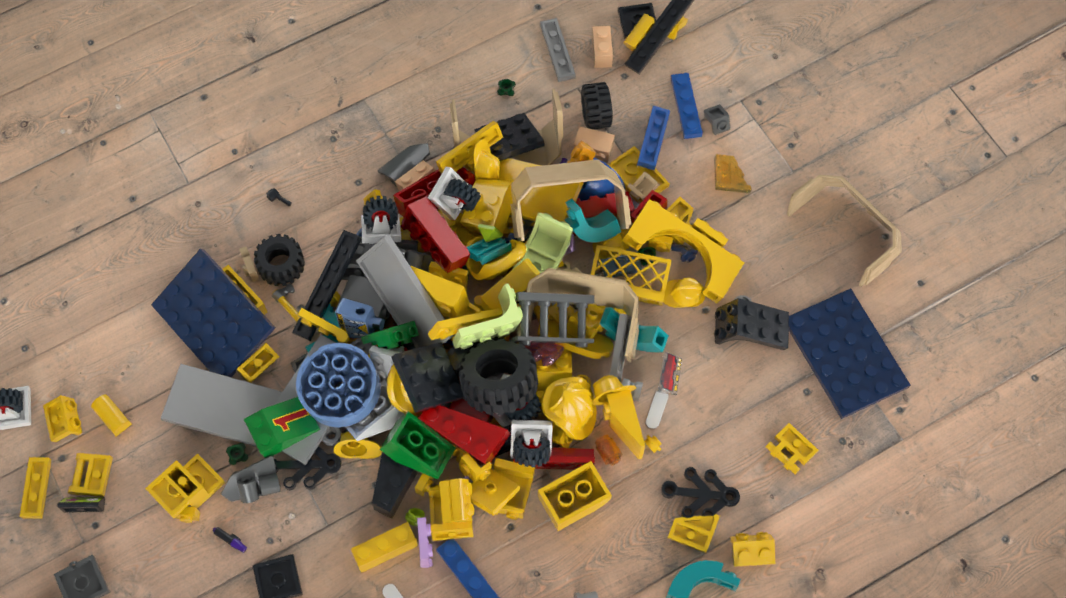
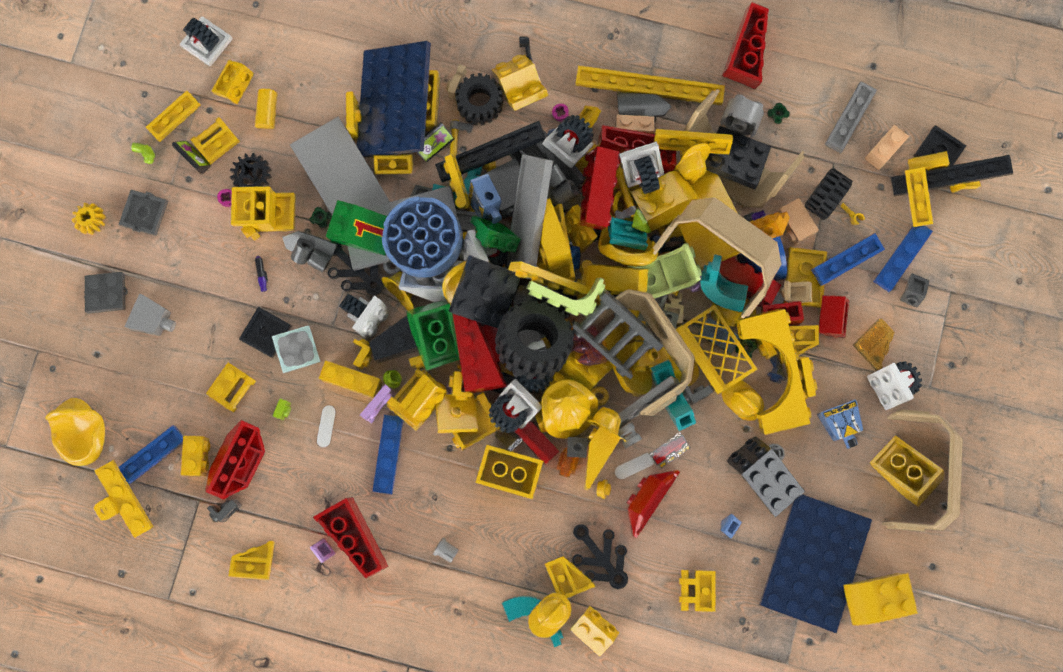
camera: 50 degrees right, 15 degrees up
(36, 534) = (146, 151): none -> lime arm
(137, 506) = (226, 192): none -> dark pink bush
(142, 464) = (258, 167): none -> black gear
(189, 352) = (353, 115): none -> yellow plate
(276, 313) = (435, 141): none -> slope
(299, 221) = (519, 82): none -> yellow bracket
(316, 567) = (296, 349): none -> light grey piece
(345, 487) = (365, 314): none -> white plate
(352, 214) = (555, 114): none -> dark pink bush
(373, 514) = (363, 358): none -> yellow bracket
(392, 147) = (647, 84): none -> yellow plate
(442, 64) = (747, 52): none -> red wedge
(474, 233) = (630, 211): none -> yellow piece
(484, 107) = (742, 115): none -> light grey brick
(548, 472) = (509, 440): none -> clear smoke piece
(603, 430) = (577, 447): none -> dark grey bracket
(627, 109) = (853, 216): none -> yellow hand
(649, 315) = (700, 393): none -> dark grey bracket
(657, 57) = (918, 197): none -> yellow plate
(683, 182) = (834, 316): none -> red brick
(691, 420) = (648, 498): none -> red wedge
(710, 567) = (549, 615): none -> yellow piece
(763, 244) = (842, 422): none -> medium blue torso
(764, 383) = (730, 525): none -> medium blue slope
(769, 187) = (895, 383): none -> white plate
(838, 235) = (908, 470): none -> yellow slope
(912, 332) = (880, 599): none -> yellow brick

